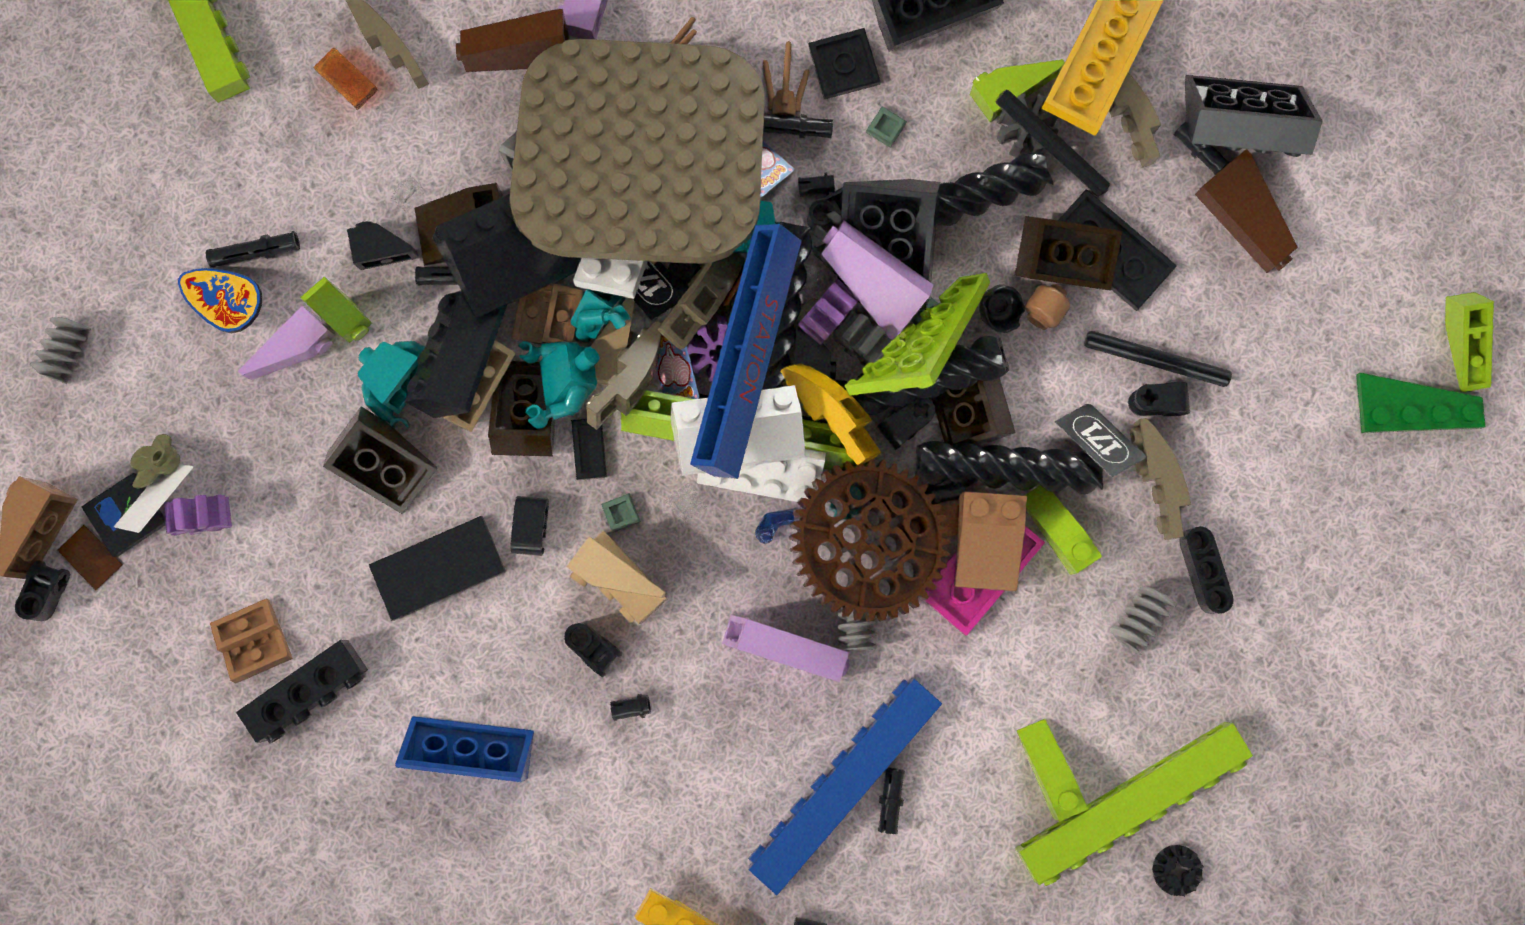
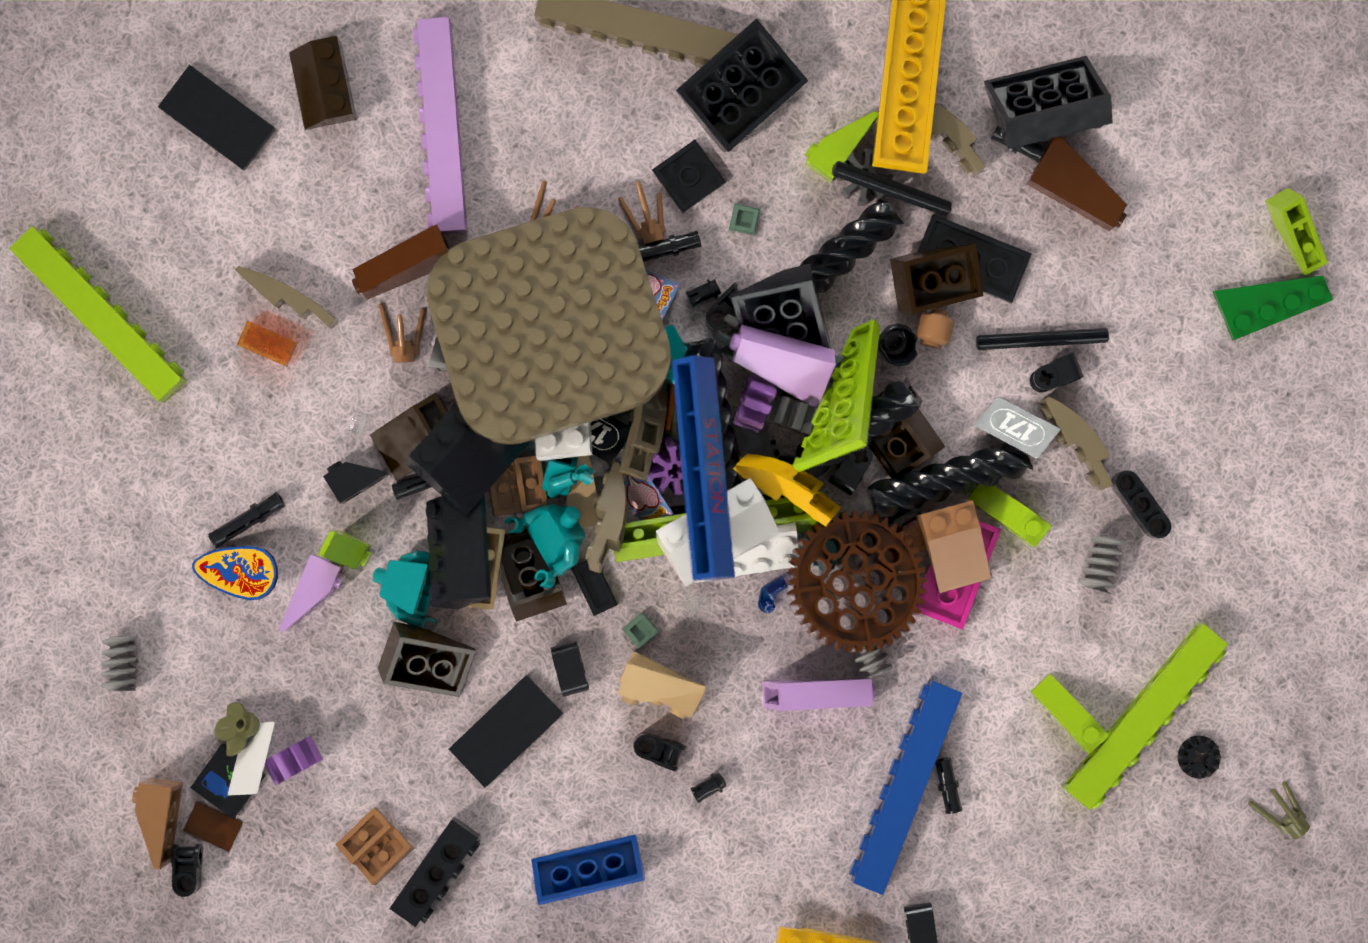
camera: 20 degrees left, 5 degrees up
(480, 132) = (401, 349): none -> medium nougat plant

